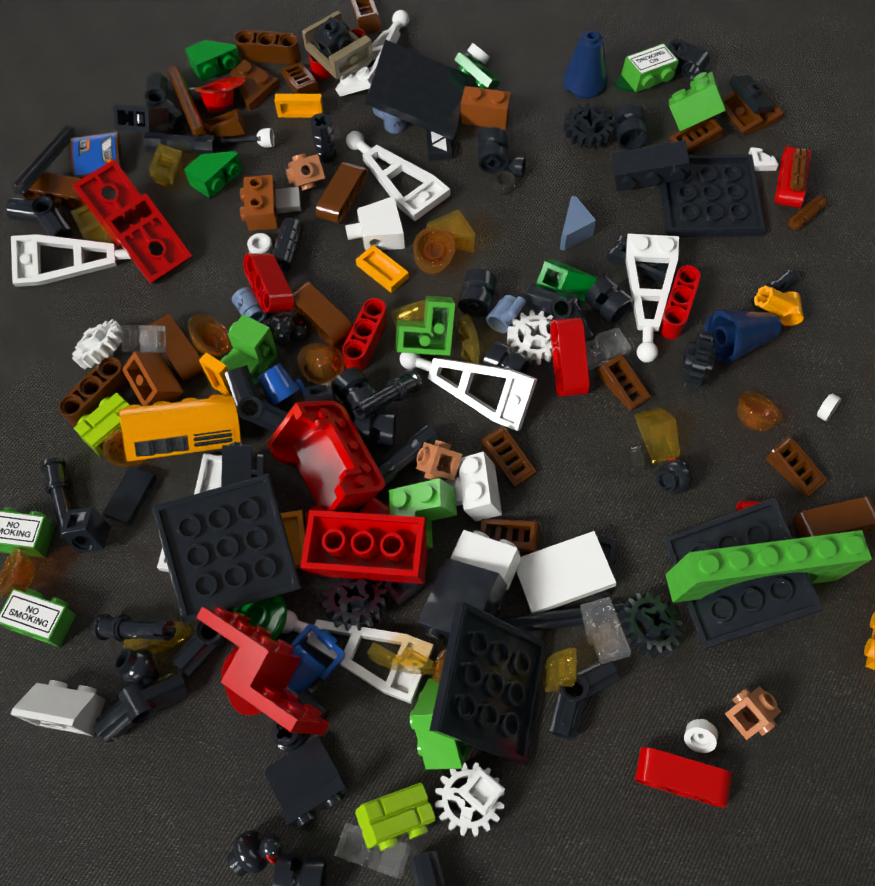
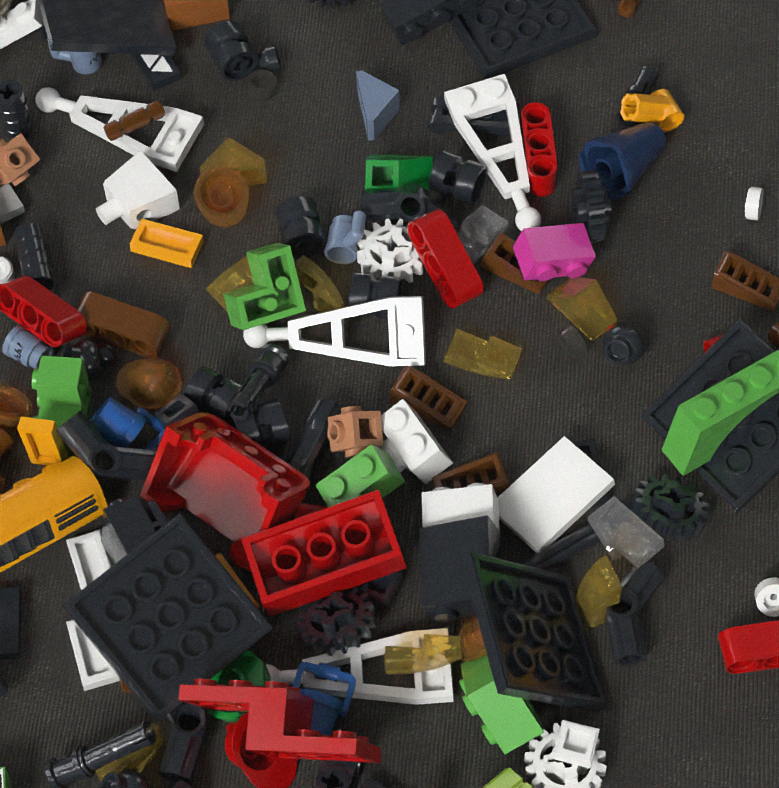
camera: 25 degrees left, 5 degrees down
(341, 192) = (68, 170): reddish brown beam -> none
(365, 324) = (185, 315): red beam -> none
(401, 174) = (134, 120): none -> reddish brown axle
(563, 441) = (483, 357): none -> clear yellow slope
(654, 384) = (554, 251): none -> dark pink brick
(757, 411) = (680, 238): clear orange piece -> none

